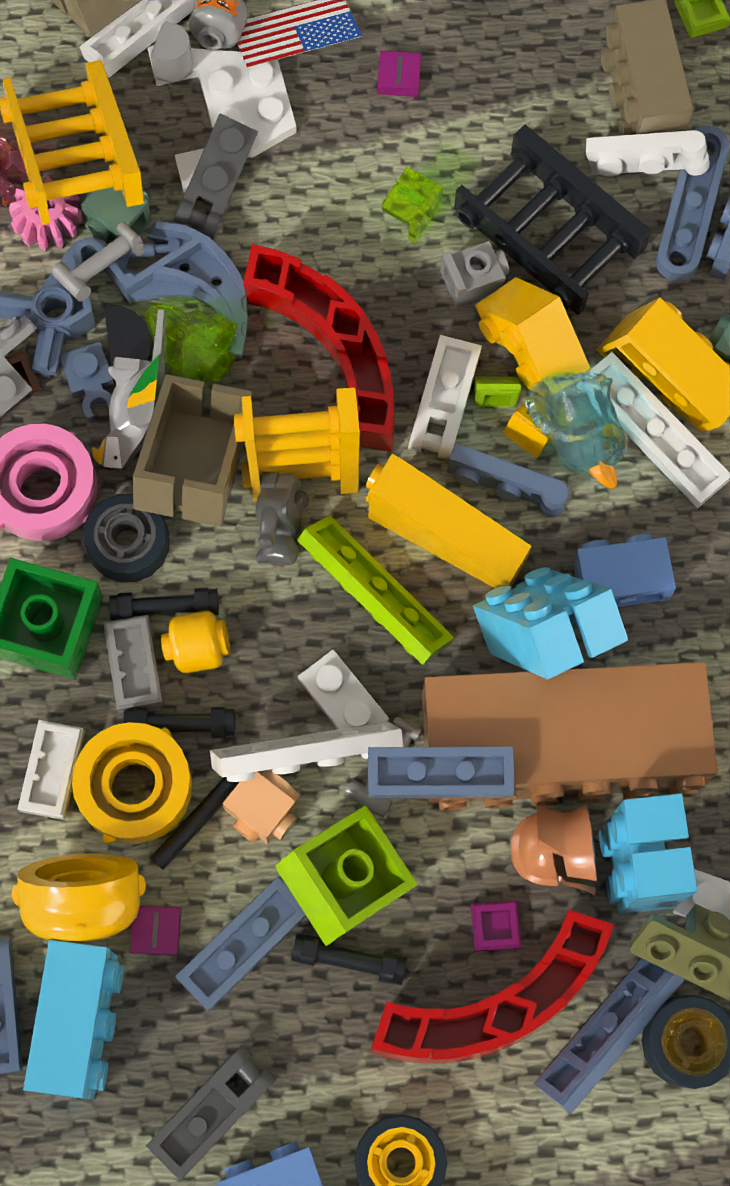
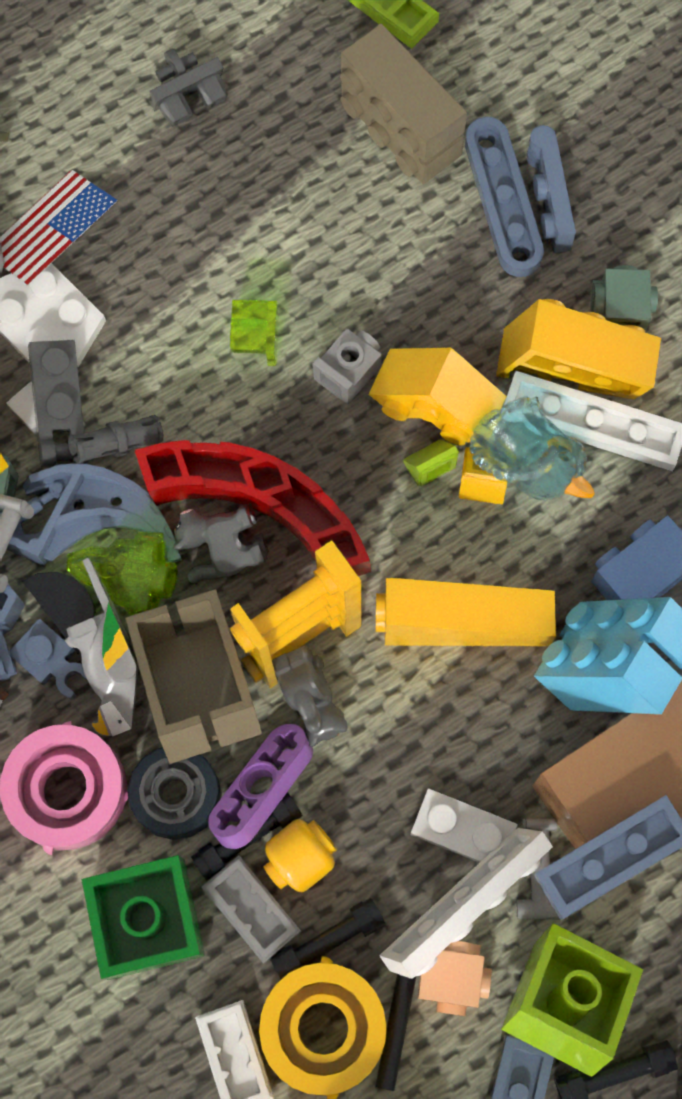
camera: 25 degrees left, 0 degrees up
(172, 590) = (261, 804): none -> medium lavender beam
(244, 229) = (115, 439): none -> dark grey pin
(285, 361) = (225, 541): none -> dark grey animal
(375, 589) = (434, 710): lime plate -> none
(399, 73) = (169, 216): magenta tile -> none
(445, 395) = (389, 493): white plate -> none
(508, 480) = (493, 539): sand blue plate -> none
(560, 182) = (377, 239): black fence -> none
(648, 153) = (442, 172): white plate -> none

